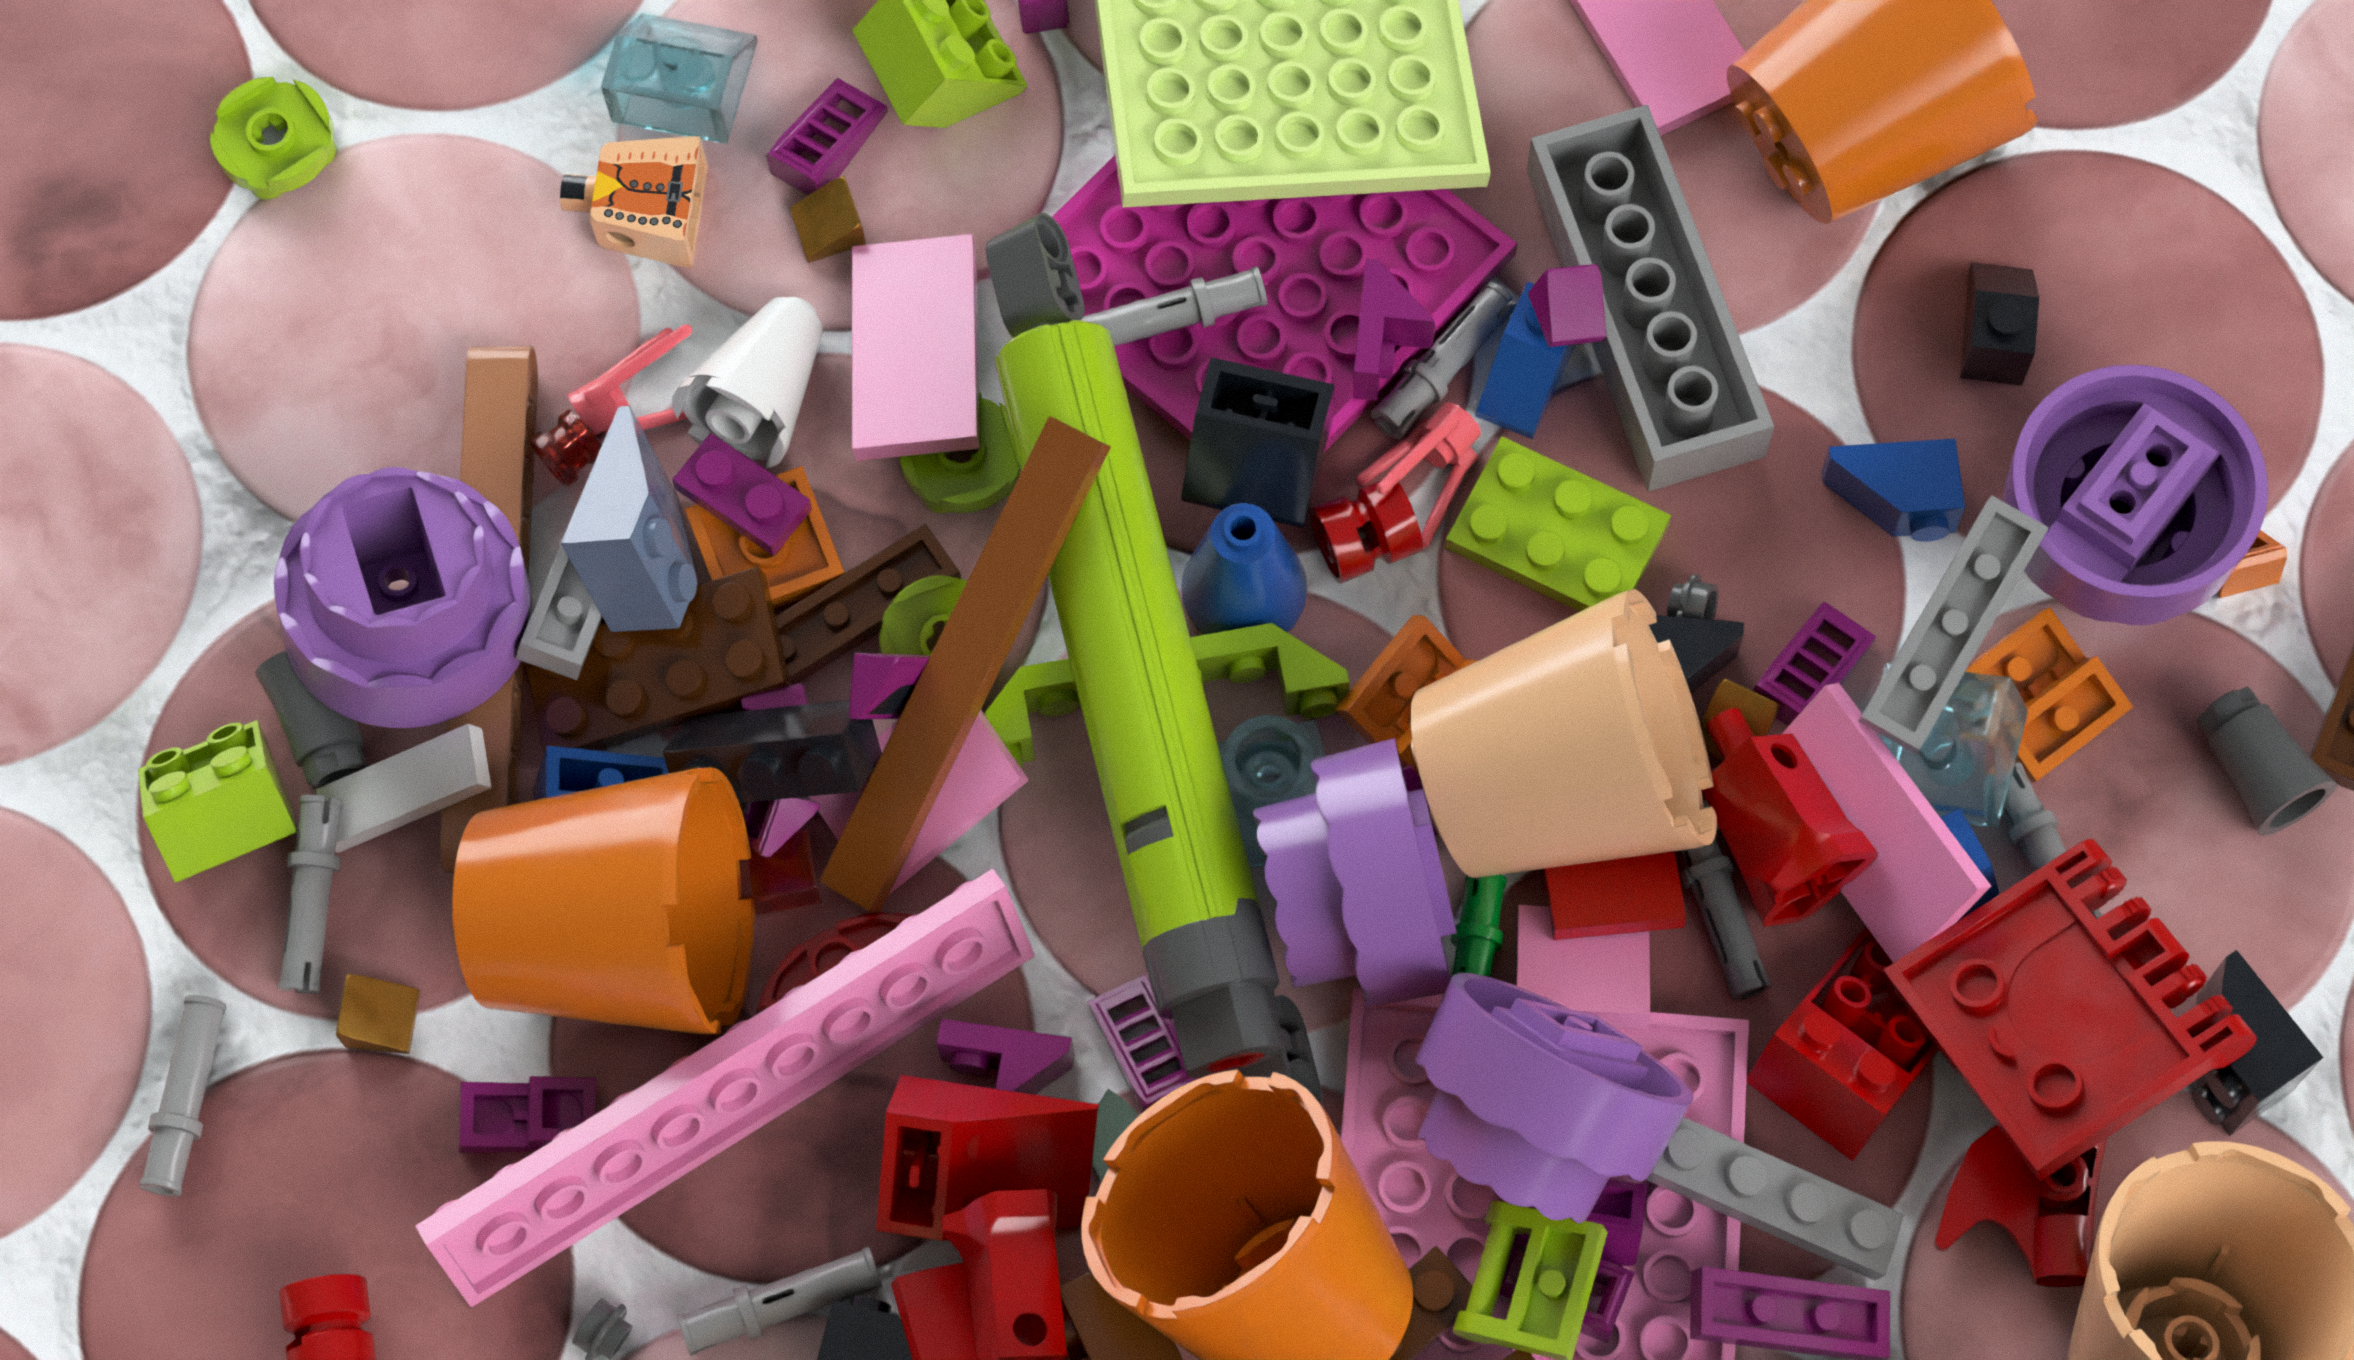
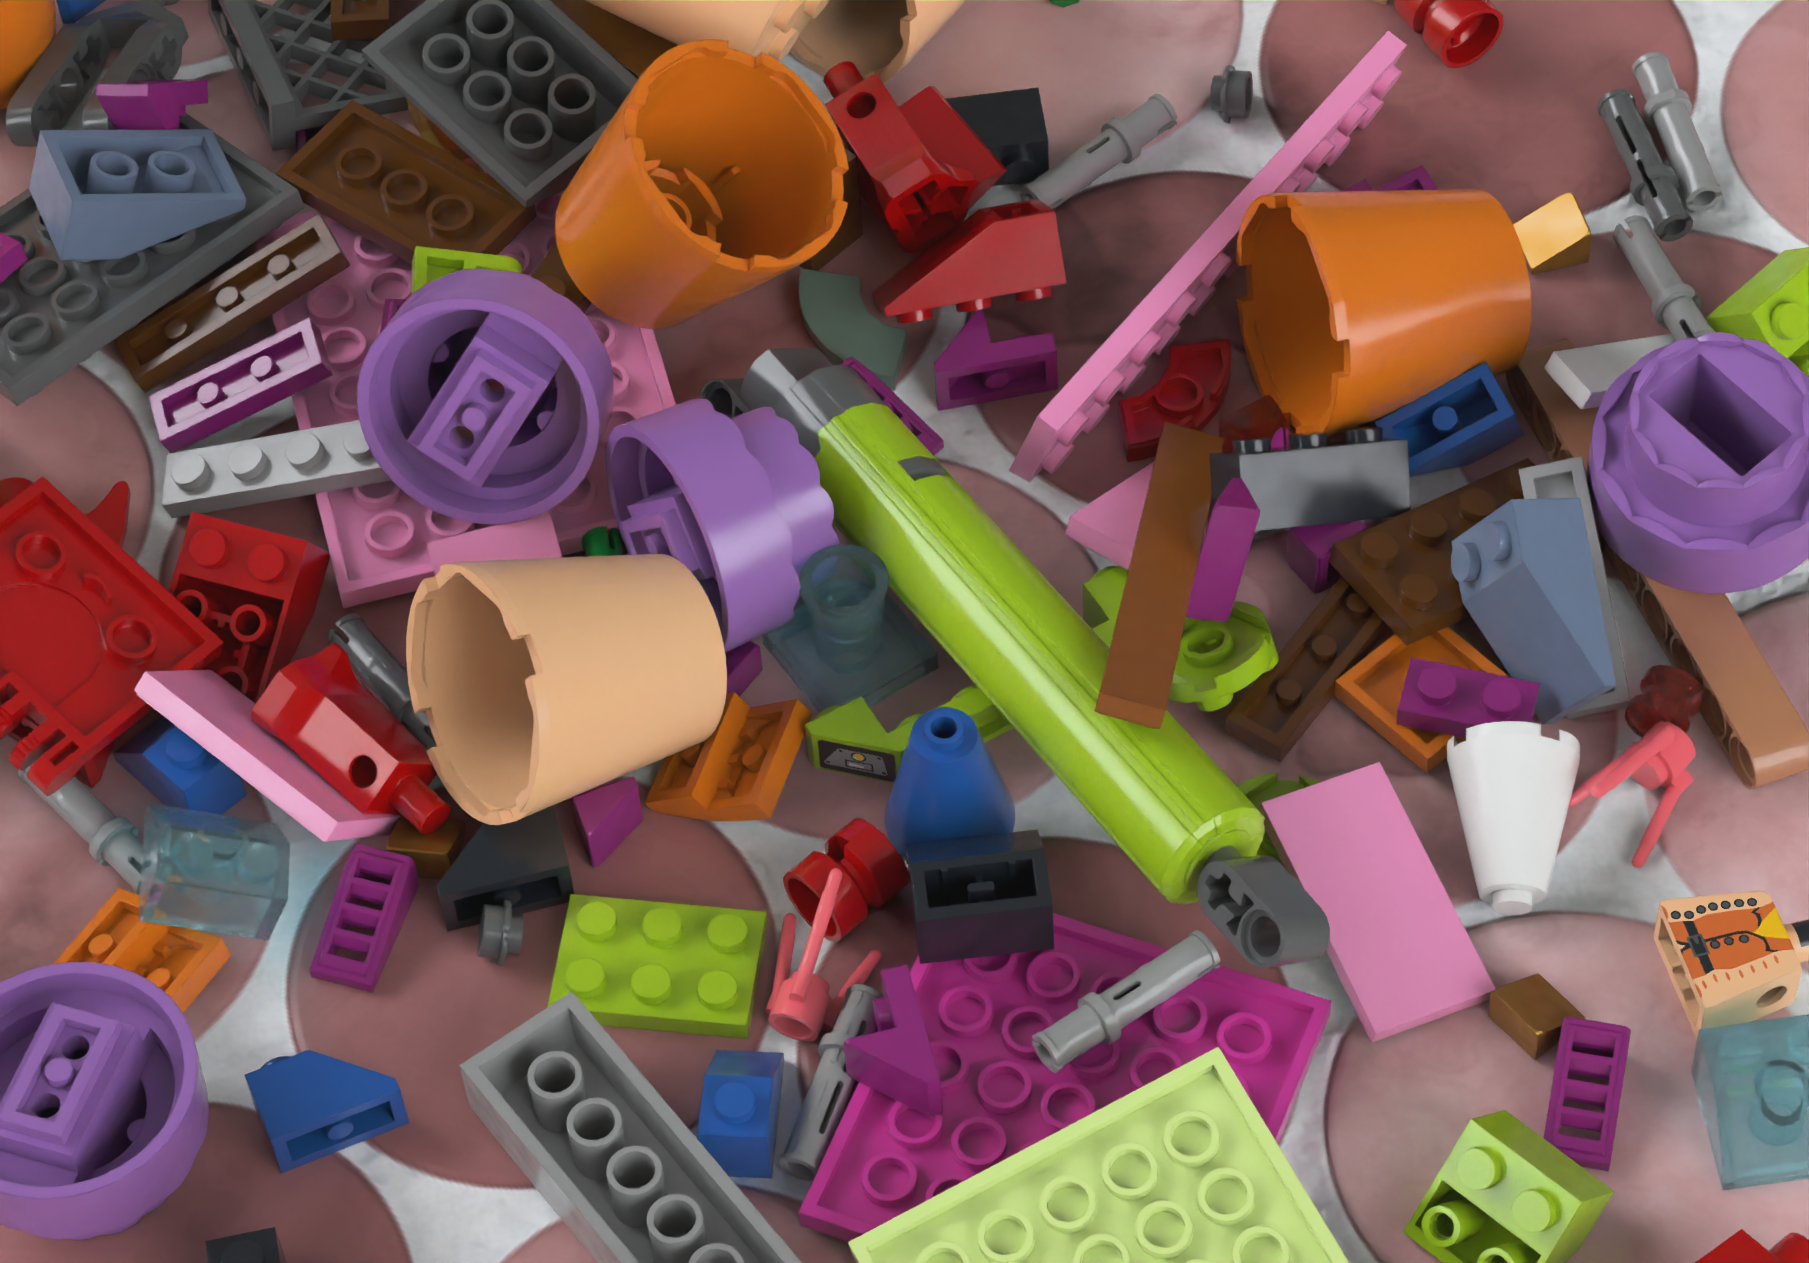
camera: 160 degrees right, 15 degrees down
(239, 1064) = (1652, 181): none -> dark grey pin
(1570, 305) = (708, 1098): magenta slope -> none
(1953, 624) = (220, 889): light grey plate -> none

